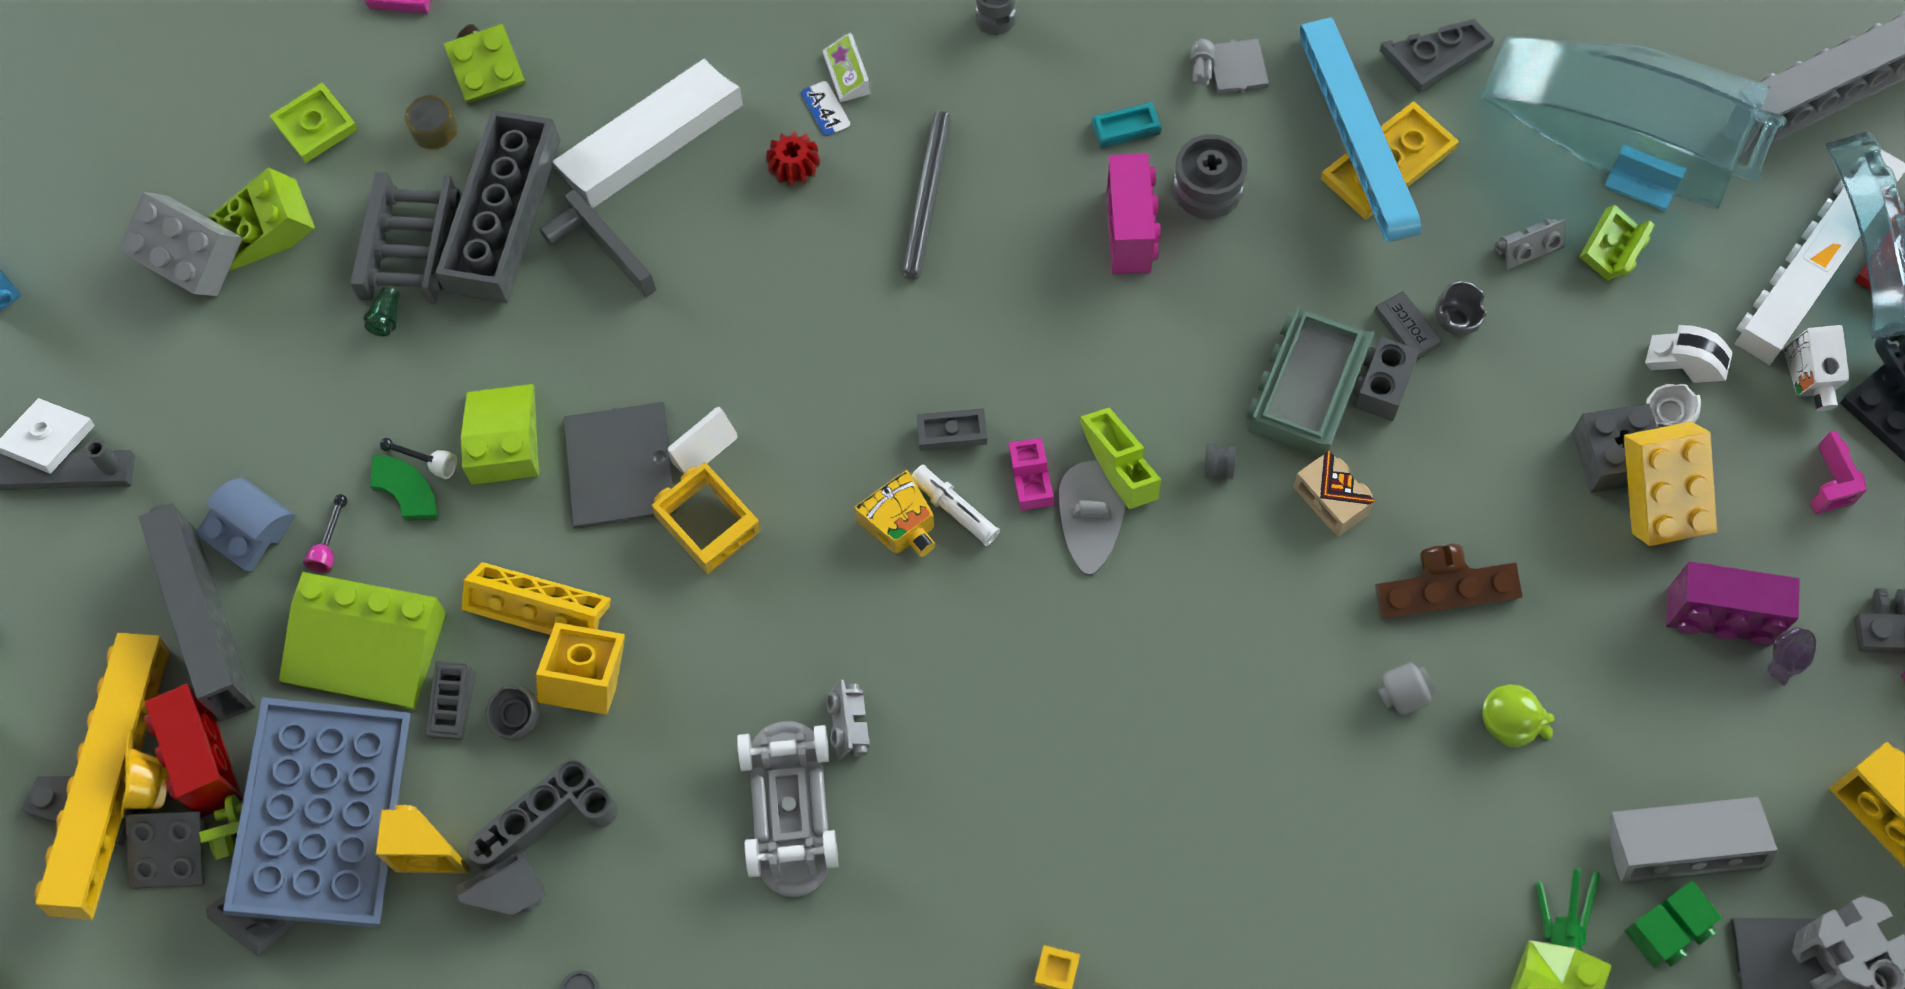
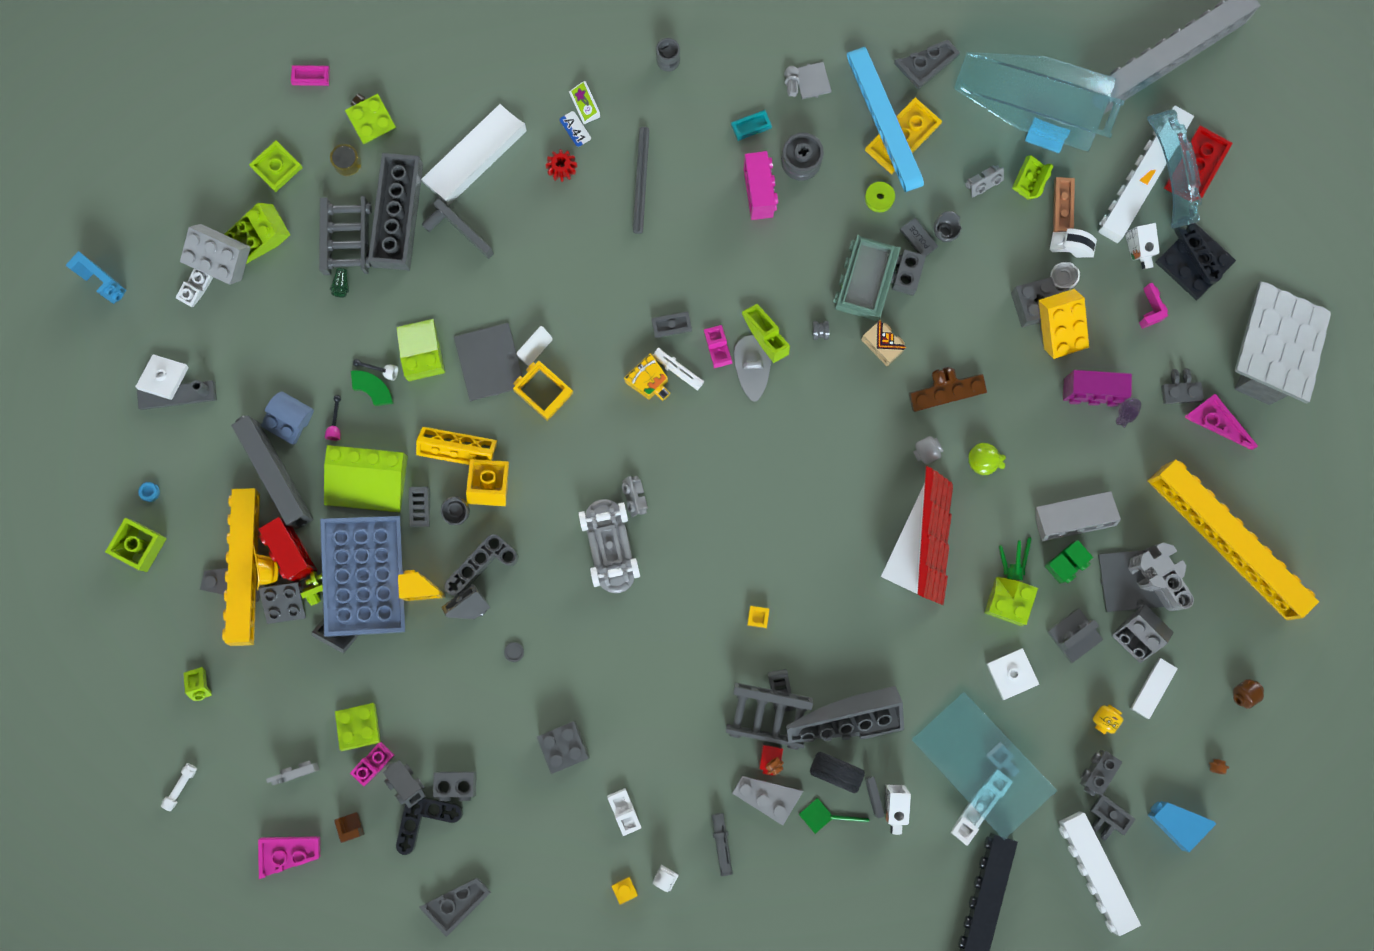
camera: 10 degrees left, 15 degrees up
(141, 295) = (195, 287): none -> white slope
(1342, 266) = (883, 189): none -> lime piece
(1384, 867) = (923, 546): none -> red piece
(1672, 289) = (1063, 204): none -> nougat plate

